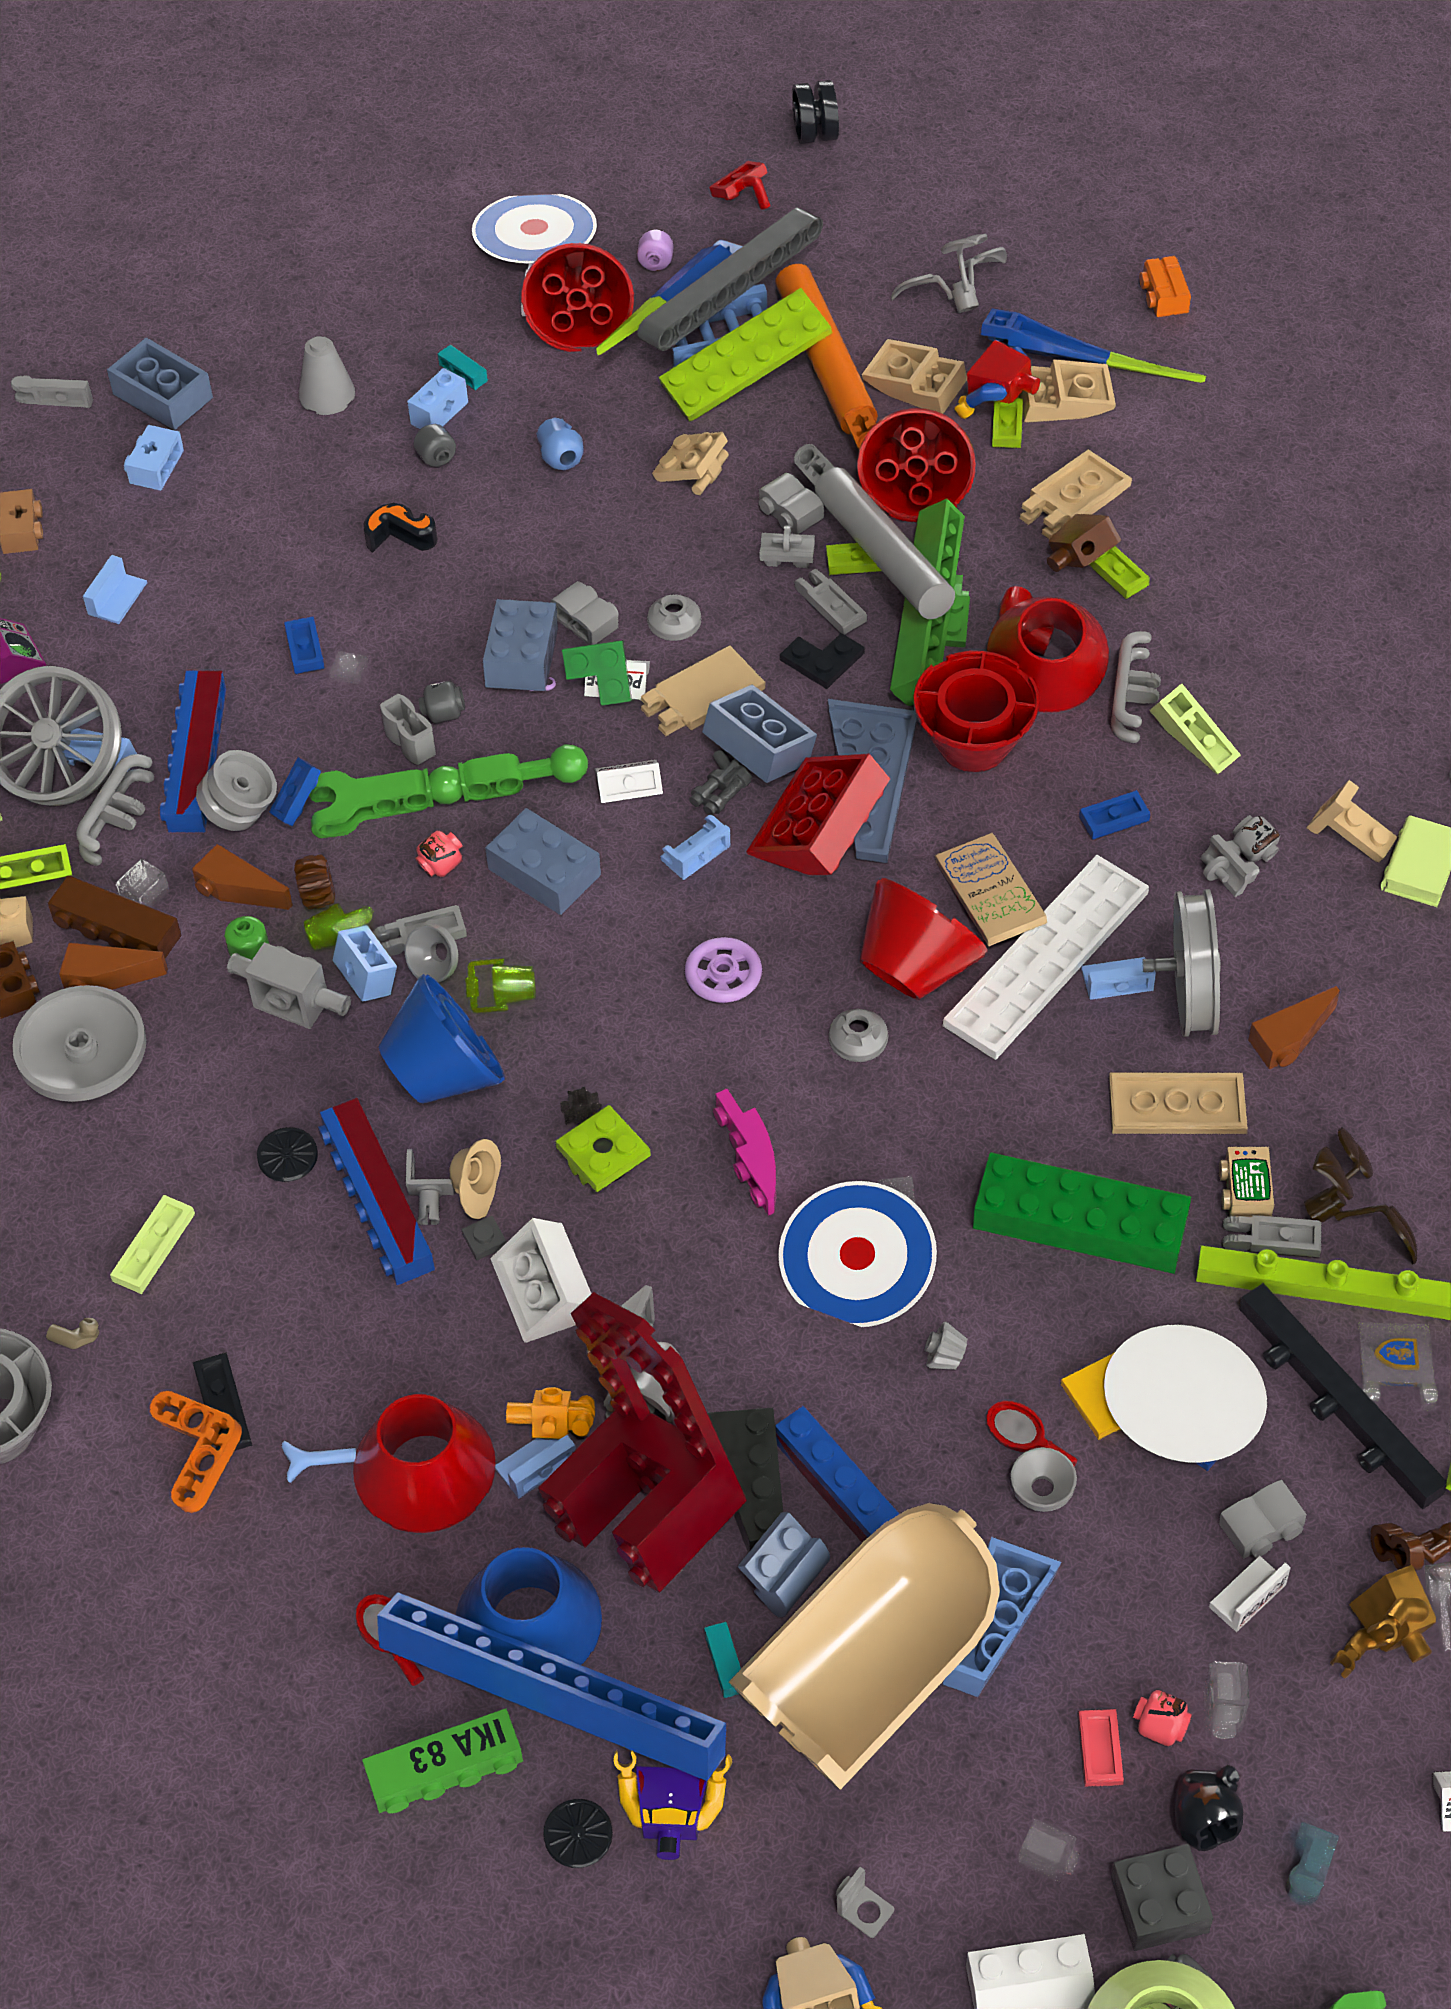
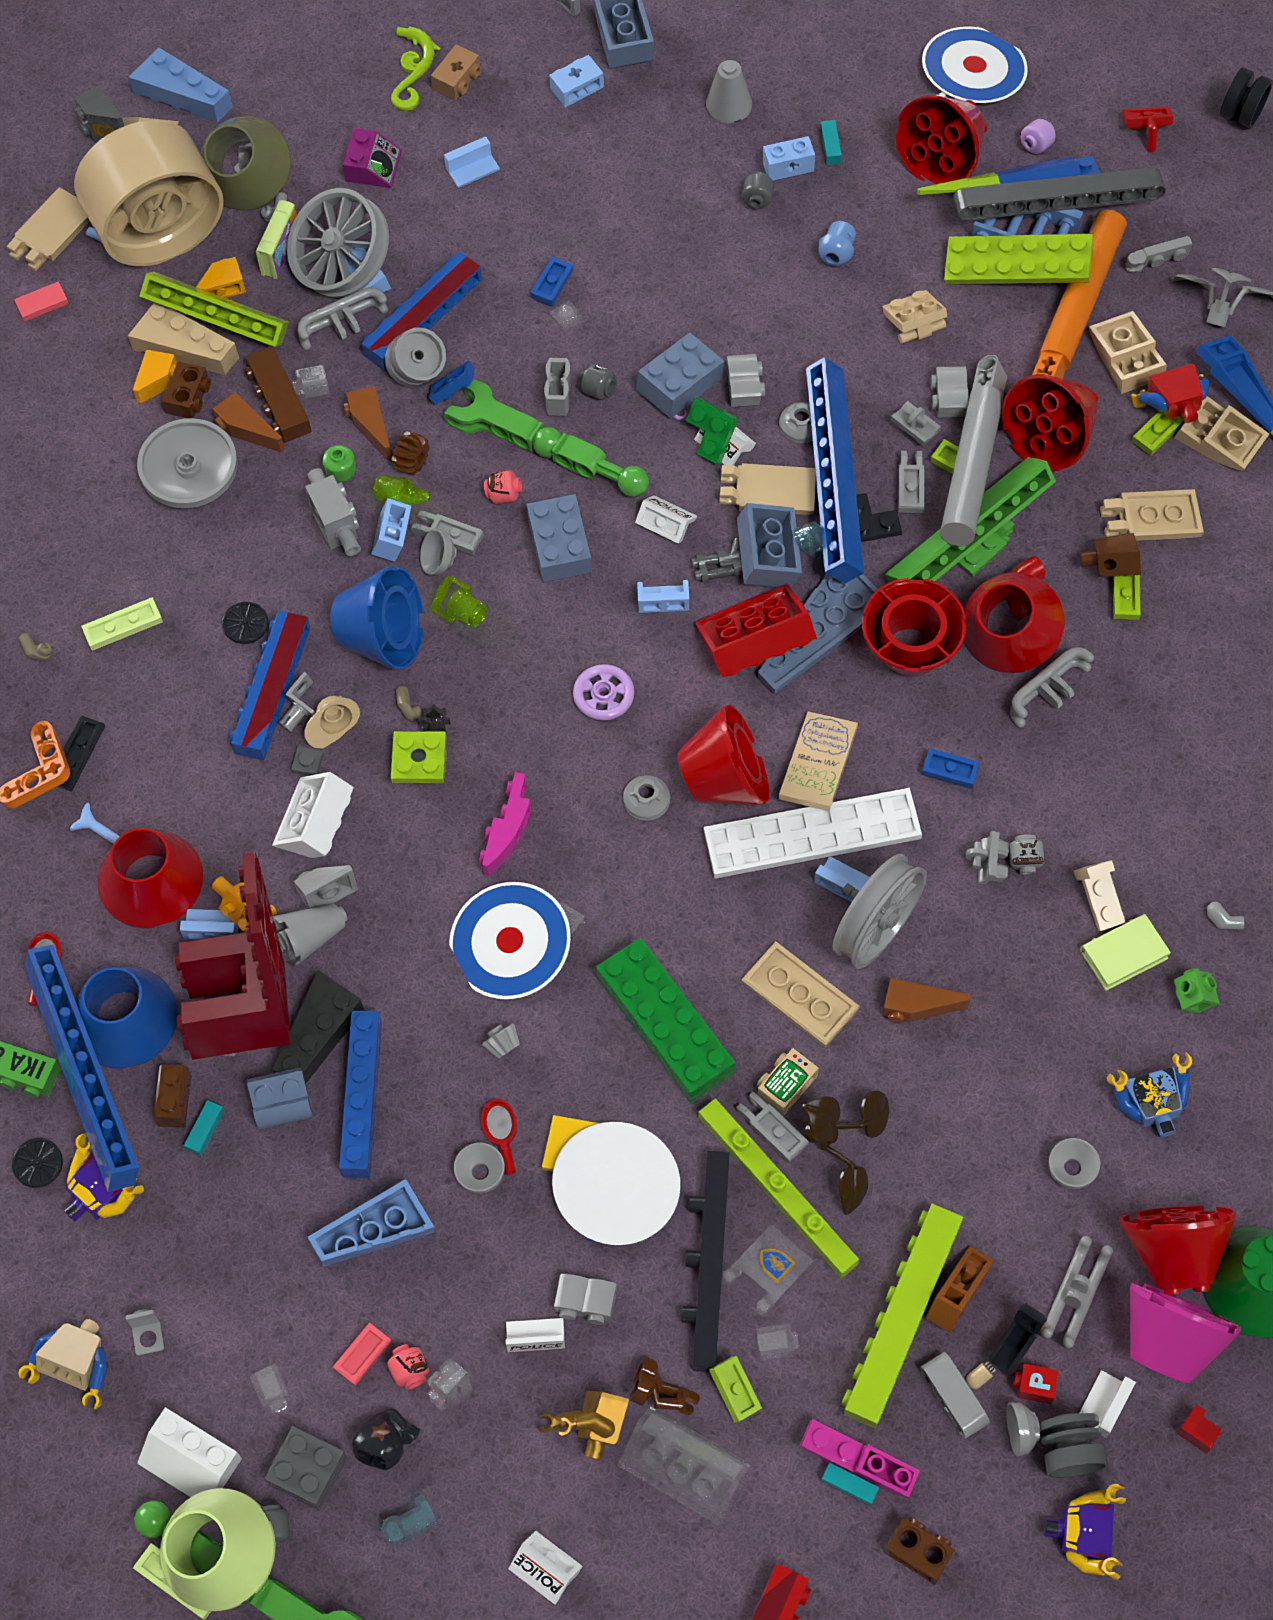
camera: 40 degrees right, 10 degrees up
(399, 522) = (686, 230): black animal -> none
(545, 1118) = (404, 704): none -> dark tan arm
(663, 1651) = (172, 1096): none -> reddish brown brick
(757, 630) = (834, 471): none -> blue brick
(798, 699) = (810, 540): none -> clear light blue leg
(862, 282) = (1158, 254): none -> light grey hinge
(875, 1639) = (276, 1186): tan panel -> none
(1194, 729) = (1061, 749): yellowish green slope -> none

